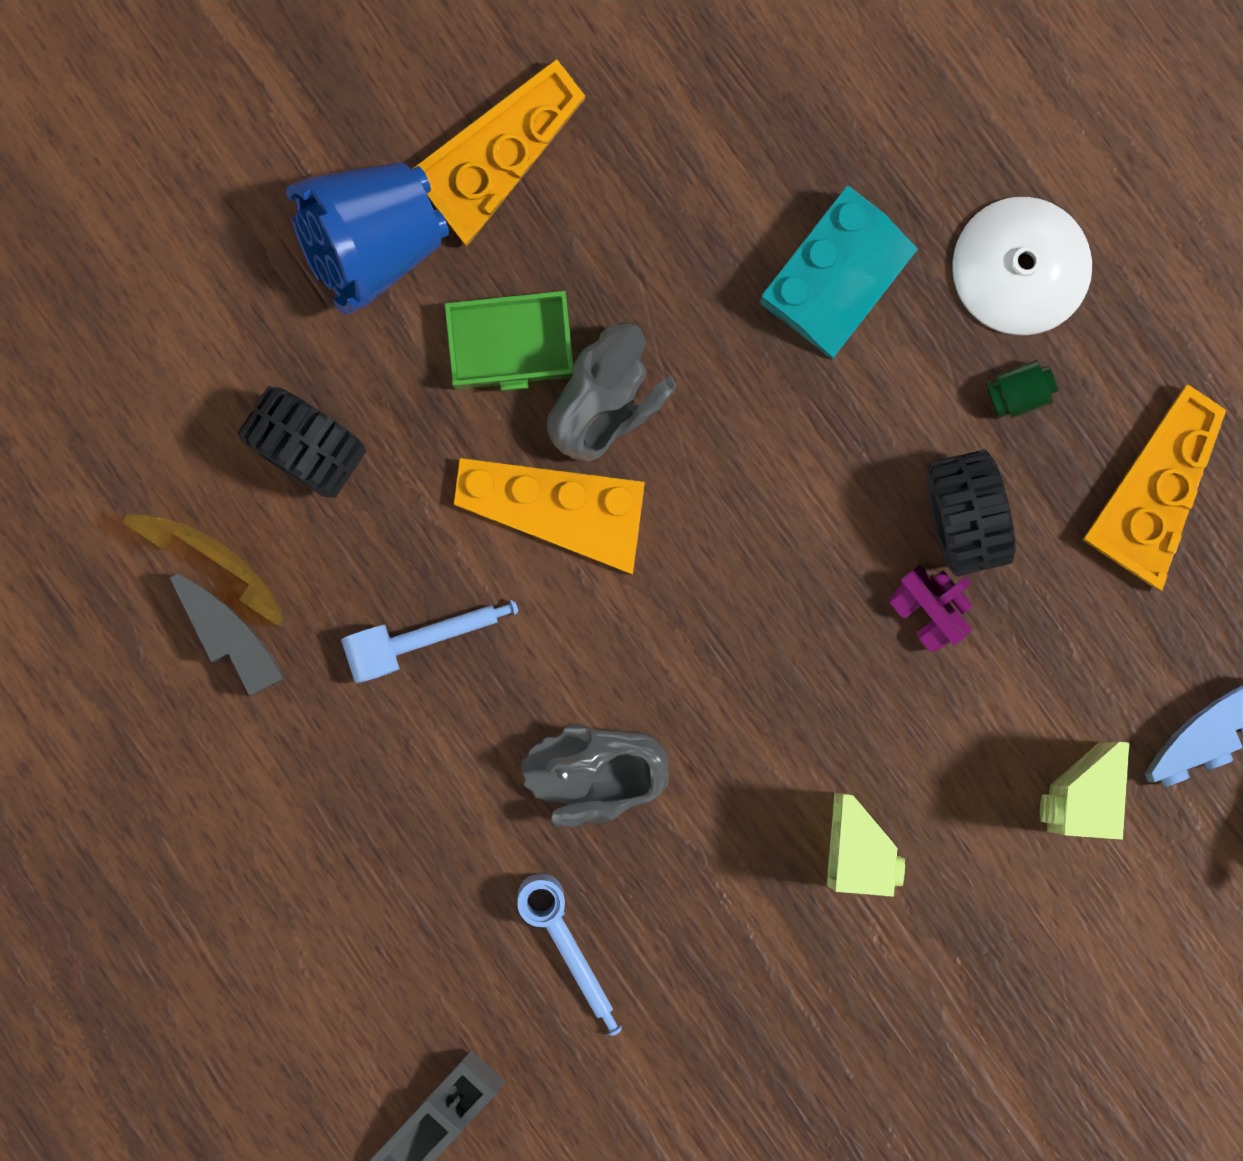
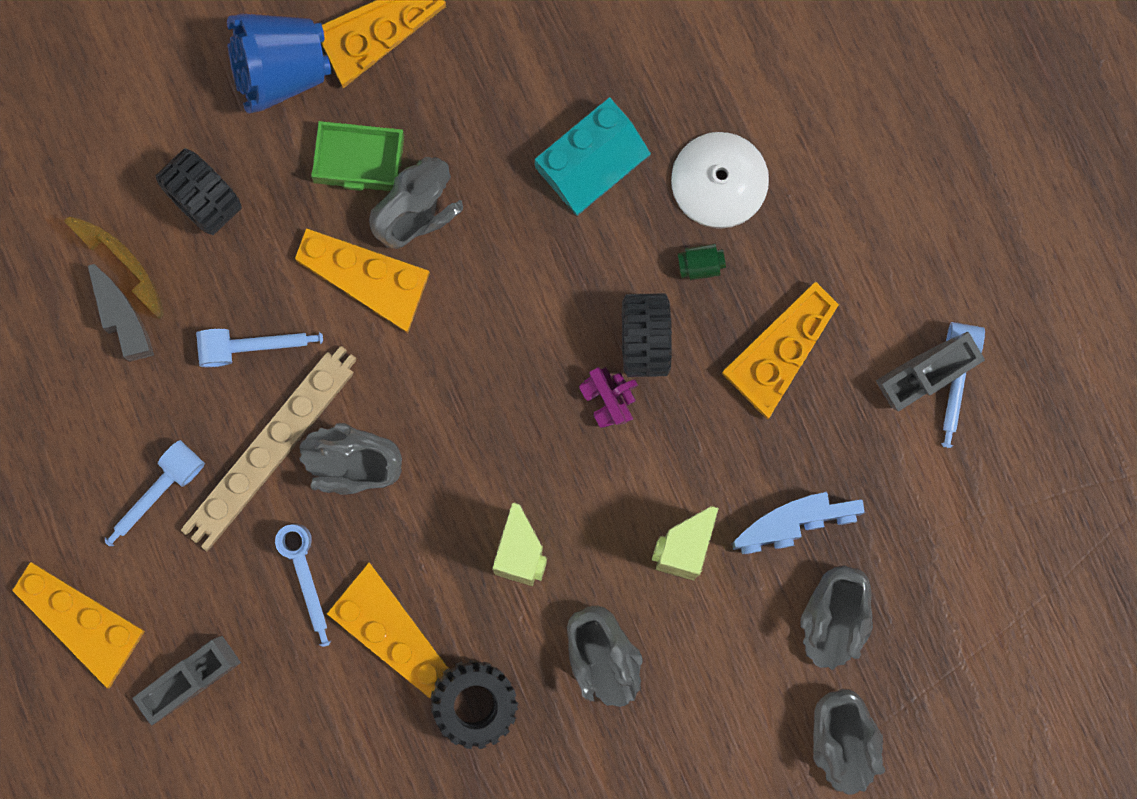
camera: 10 degrees right, 5 degrees down
(278, 1076) = (85, 626): none -> light orange wing
(359, 830) = (179, 465): none -> light blue piece
(478, 775) = (270, 448): none -> tan hinge
(692, 991) = (384, 626): none -> light orange wing
(866, 1100) = (494, 724): none -> black tyre
(1003, 971) = (603, 657): none -> dark grey hair

